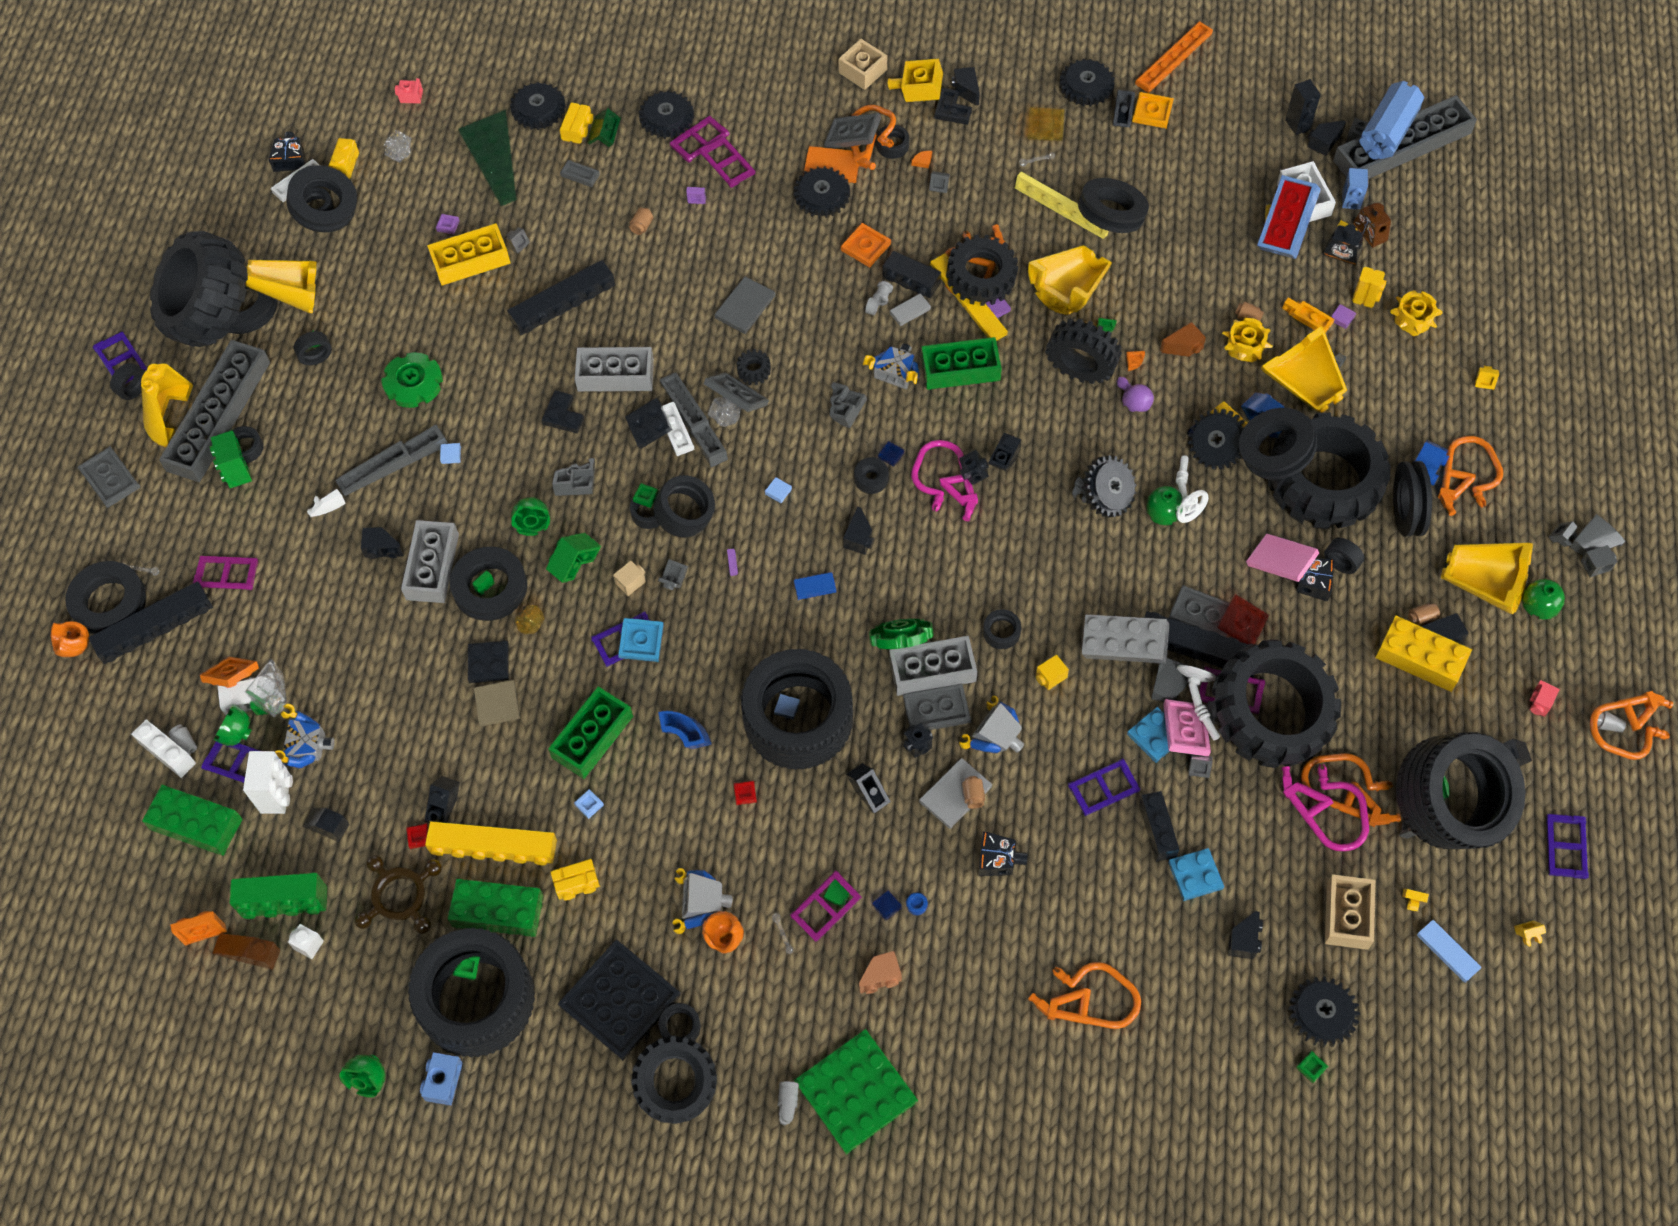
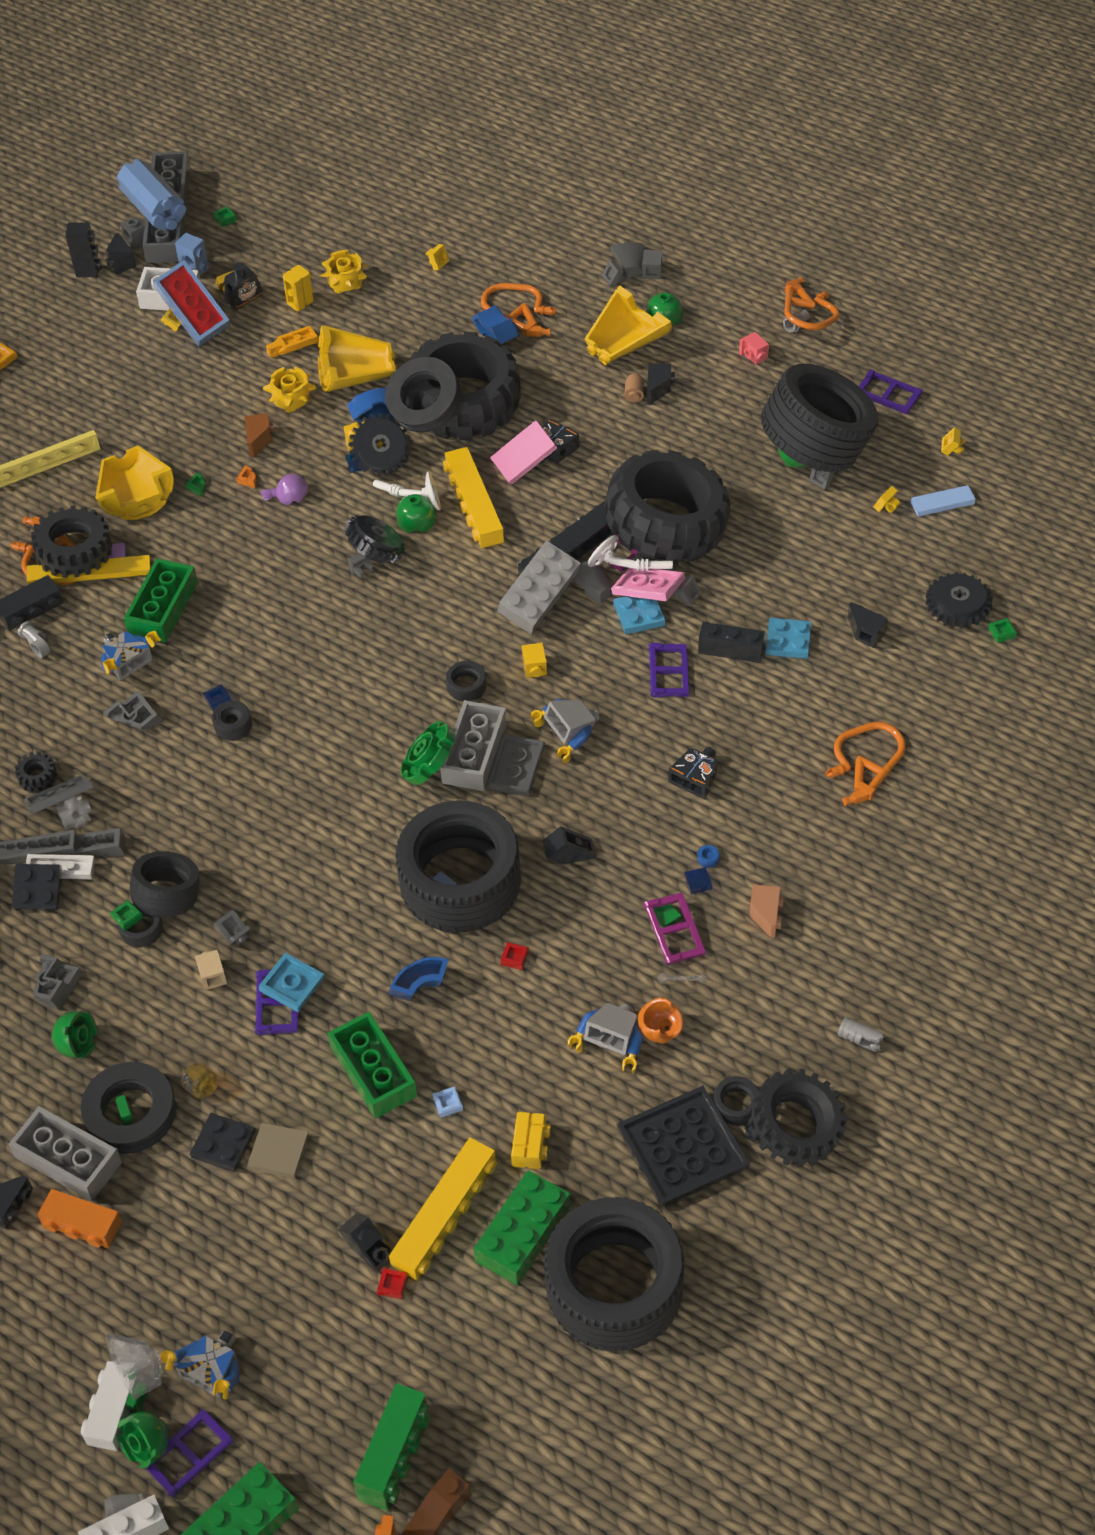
camera: 65 degrees left, 10 degrees down
(229, 672) = (71, 1416): orange plate -> none
(267, 782) = (247, 1408): white brick -> none
(305, 941) = (460, 1440): white brick -> none
(326, 823) = (323, 1374): black slope -> none
(364, 1074) = (652, 1424): green cylinder -> none
(375, 864) = (443, 1276): dark brown piece -> none
(385, 599) = (79, 1219): none -> orange brick
(441, 1092) = (684, 1334): medium blue brick -> none
(467, 968) = (594, 1255): green tile -> none
(571, 554) = (152, 1008): green brick -> none
(732, 562) = (252, 871): medium lavender tile -> none
(778, 490) = (193, 804): light blue tile -> none
(815, 586) = (322, 813): blue tile -> none
(856, 1091) = (873, 975): green plate -> none
(859, 533) = (290, 753): black slope -> none
(910, 309) = (66, 621): light grey tile -> none
(917, 740) = (544, 788): black brick -> none
(946, 797) = (612, 783): light grey tile -> none
(969, 500) = (311, 654): dark pink piece -> none
(973, 792) = (624, 762): medium nougat brick -> none
(974, 467) = (284, 632): black brick -> none
(1006, 452) = (282, 603): black slope -> none
(1090, 340) = (213, 485): black tyre -> none
(1106, 217) = (76, 420): black tyre -> none
(1199, 609) = (536, 530): dark grey tile -> none
(1209, 541) = (473, 498): none -> yellow brick
(1243, 620) = (565, 506): clear red tile -> none
(1248, 311) = (260, 378): medium nougat brick -> none
(1325, 801) = (746, 540): dark pink piece -> none
(1343, 316) = (309, 319): medium lavender tile -> none
(1346, 554) = (544, 403): black tyre -> none
(1346, 807) = (799, 498): orange piece -> none
(1350, 912) = (880, 544): tan brick -> none
(1373, 224) = (233, 253): reddish brown torso -> none
(1412, 498) = (541, 325): black tyre -> none
(1423, 653) = (670, 402): yellow brick -> none
(1428, 189) = (224, 216): none -> green tile

